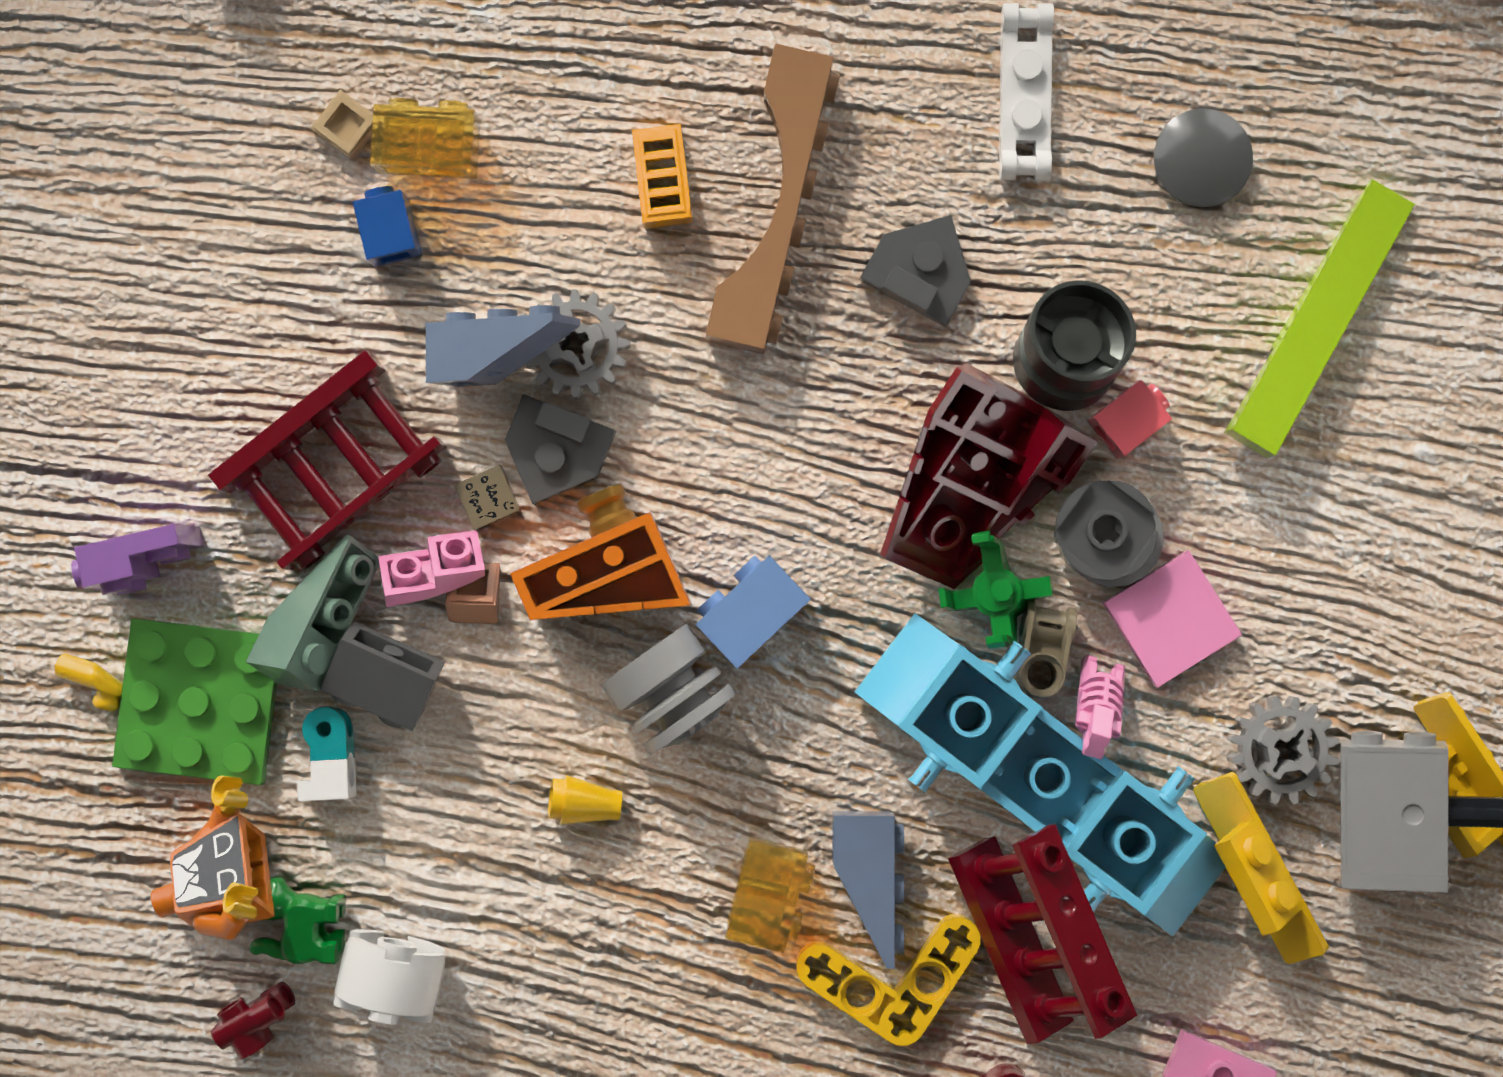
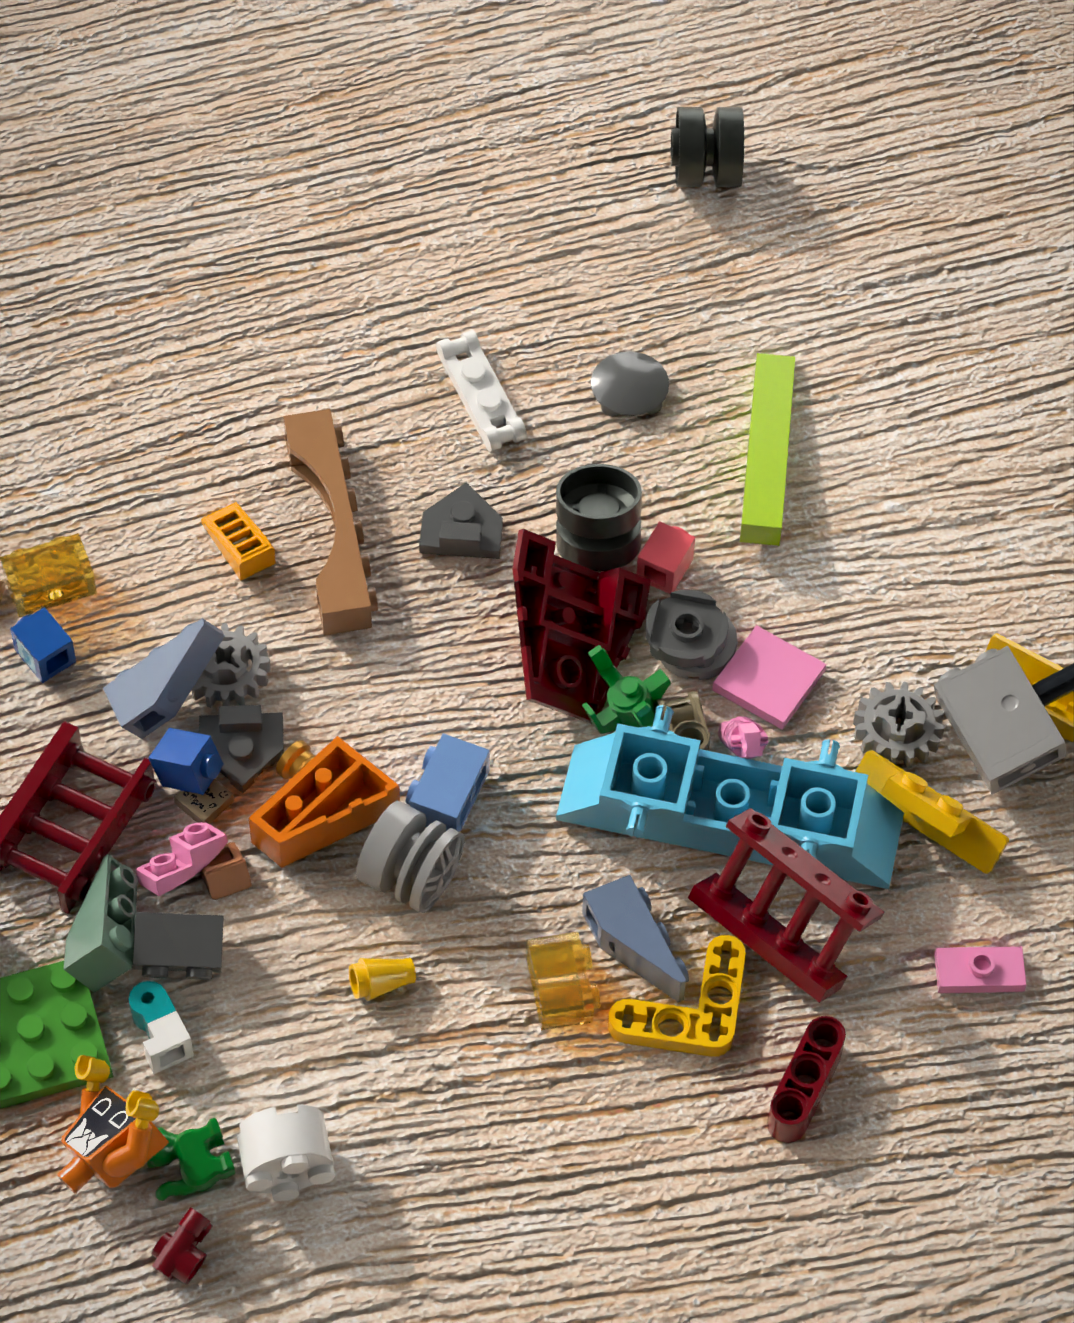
camera: 35 degrees left, 30 degrees down
(480, 457) = (186, 761): none -> blue brick

